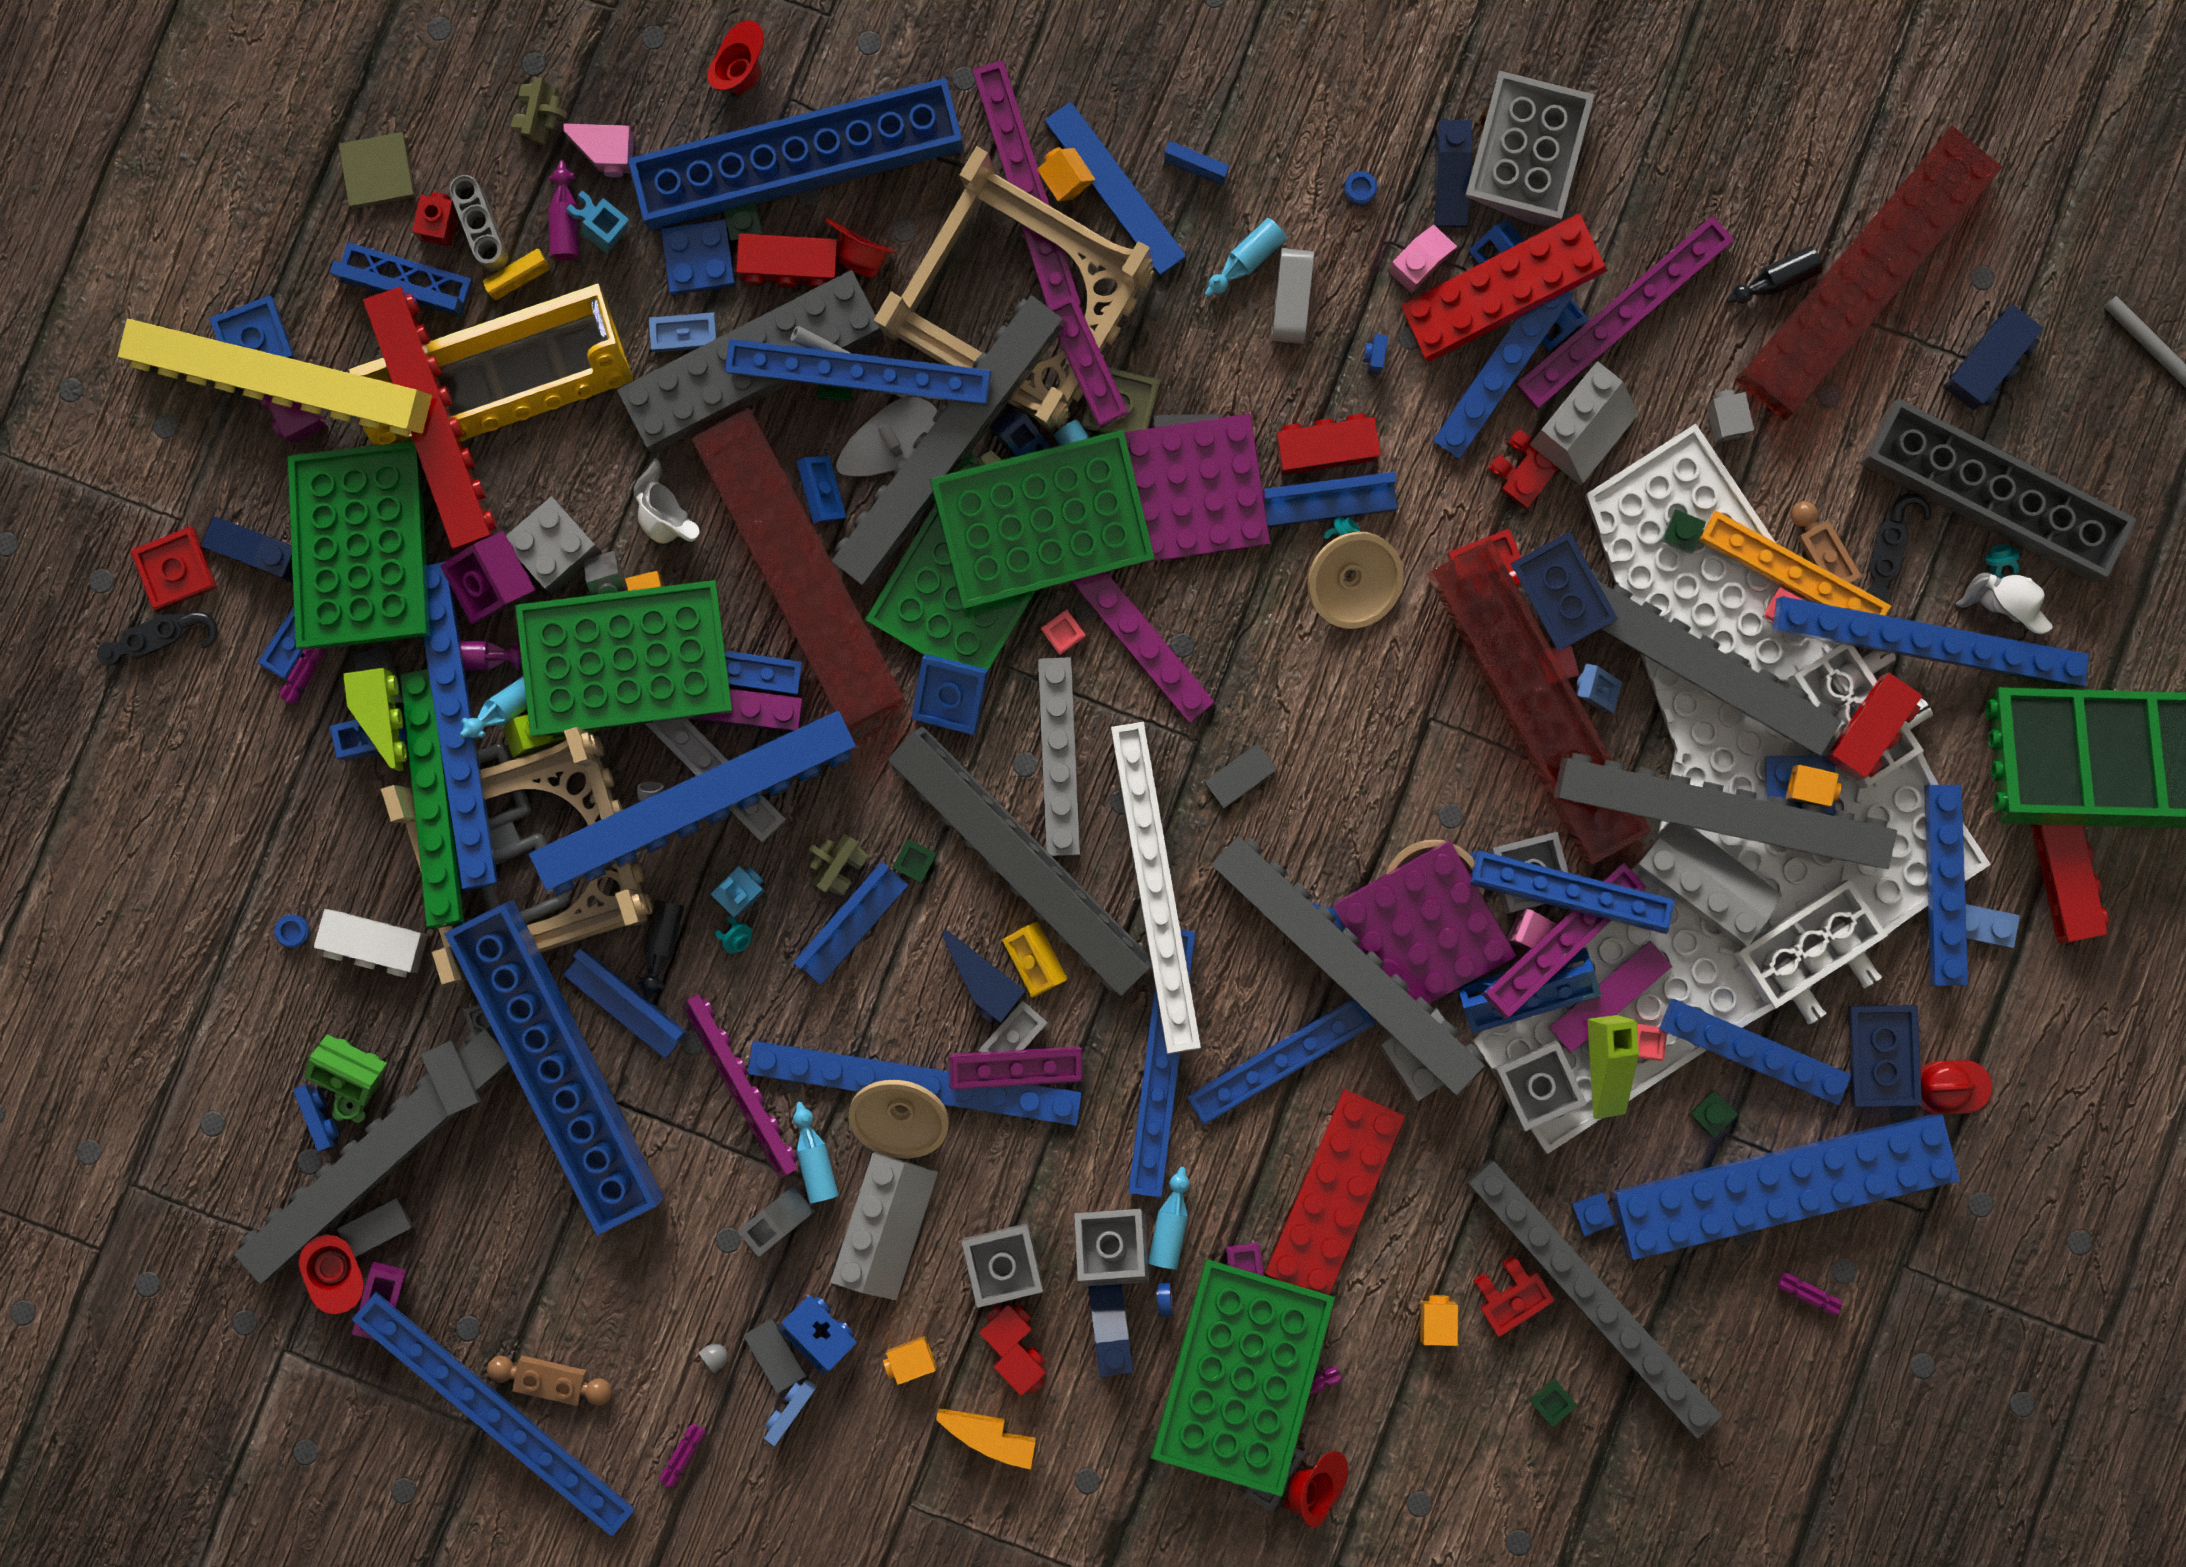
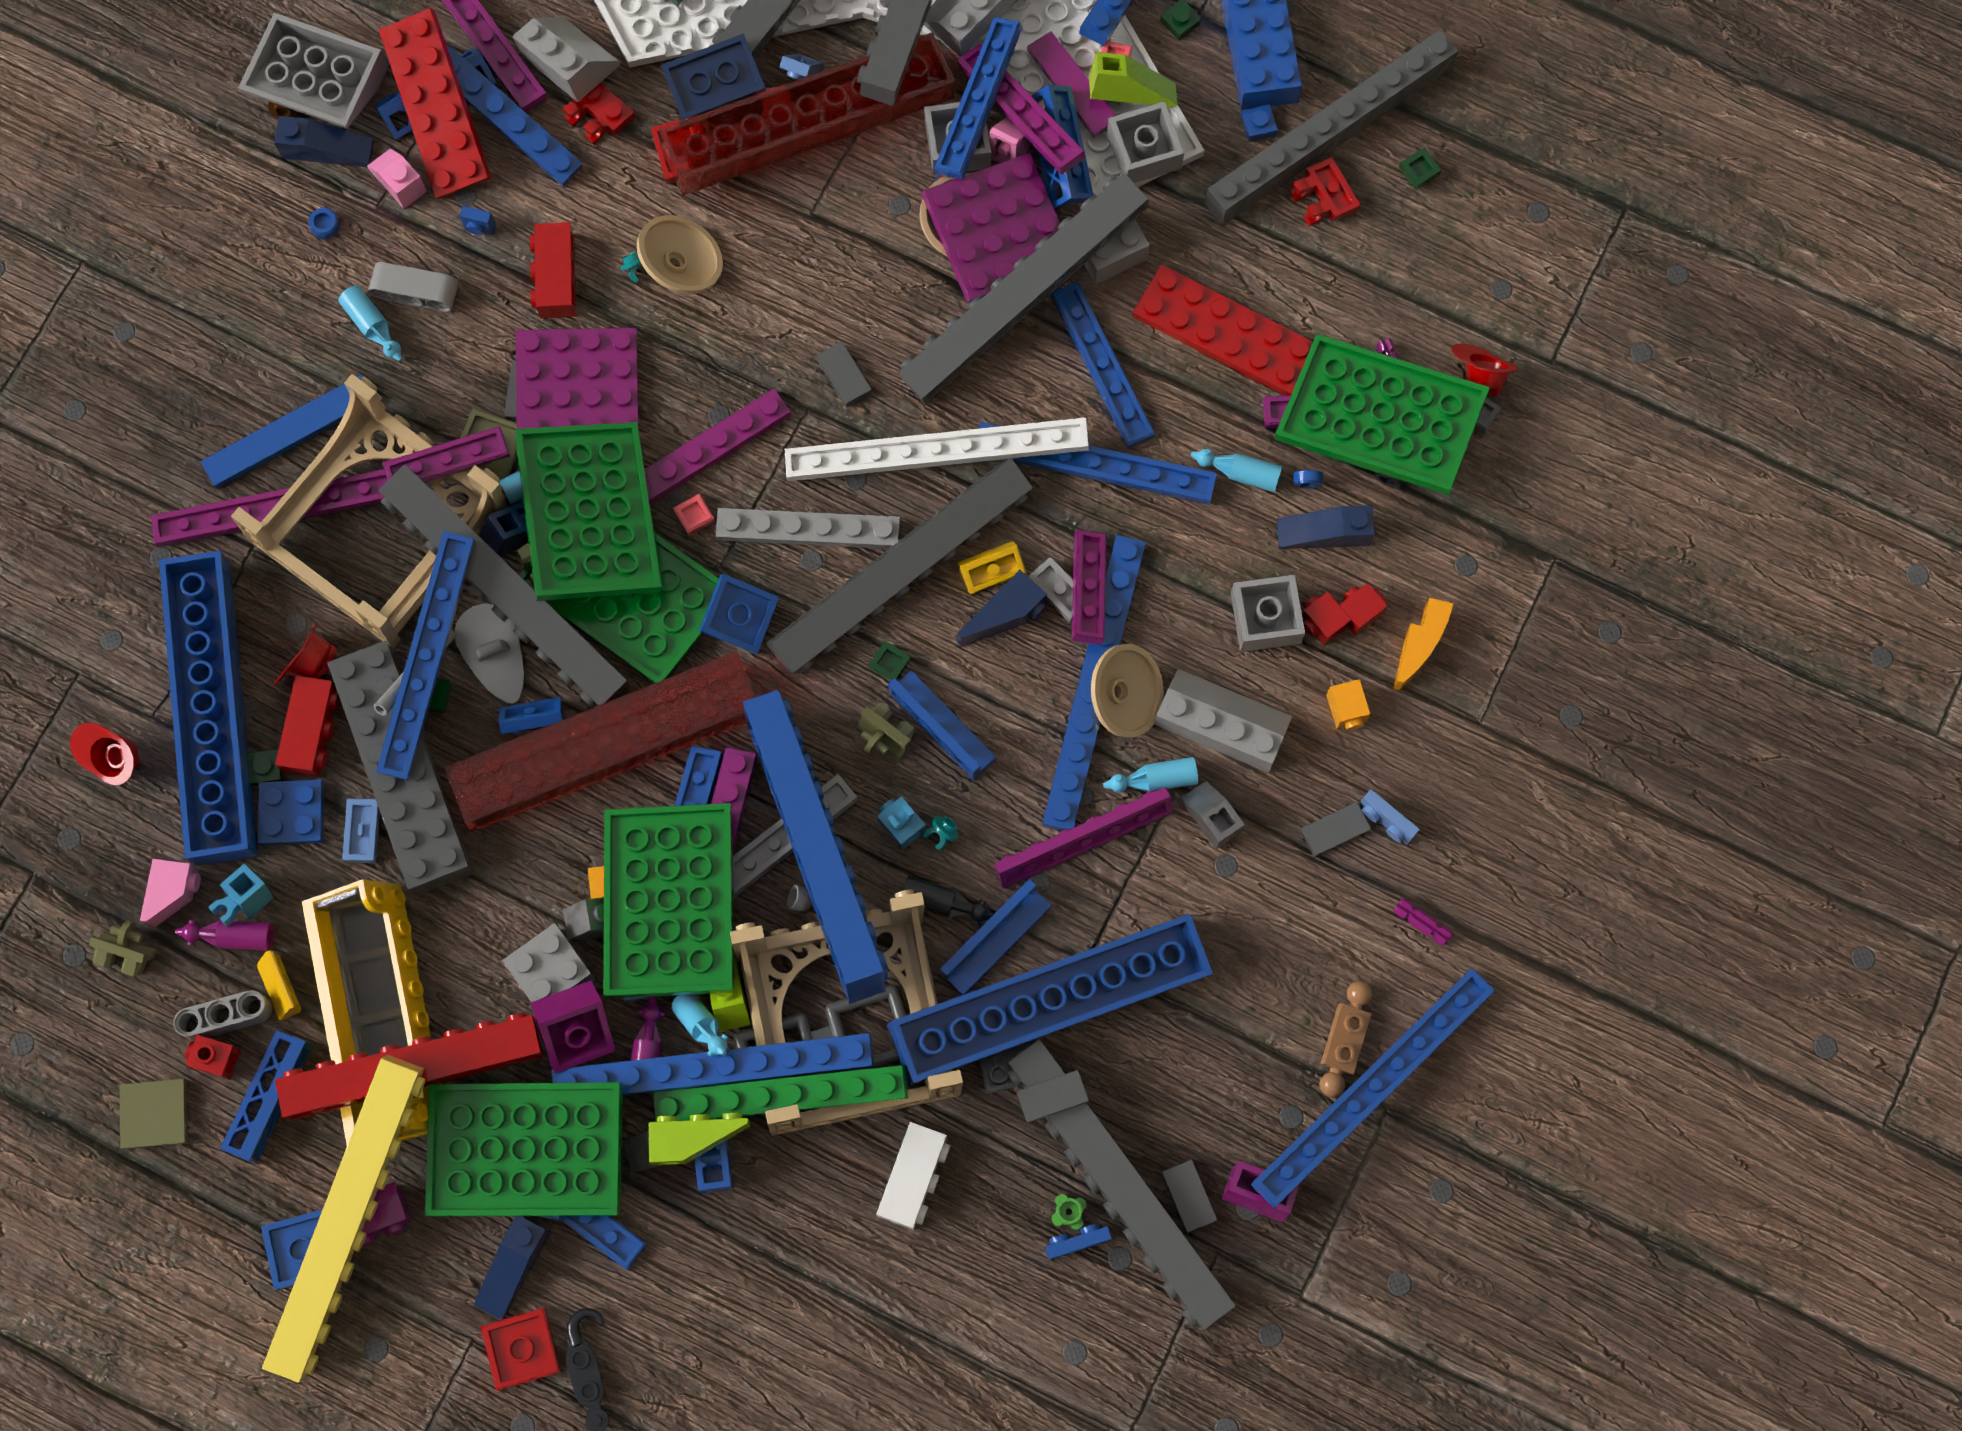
camera: 85 degrees left, 10 degrees down
(292, 931) = (894, 1256): blue tile -> none
(301, 675) = (643, 1227): magenta axle -> none
(331, 1274) = (1231, 1234): red piece -> none
(345, 1070) = (1035, 1207): bright green brick -> none
(659, 510) = (528, 867): hair -> none
(714, 1356) = (1333, 883): light grey hinge -> none
(820, 1352) = (1319, 785): blue brick -> none
(1065, 173) = (267, 469): light orange brick -> none
(1111, 1247) = (1259, 516): light grey brick -> none
(1196, 163) = (277, 356): blue tile -> none
(1330, 499) = (603, 272): blue fence -> none
(1439, 1321) = (1343, 253): light orange brick -> none

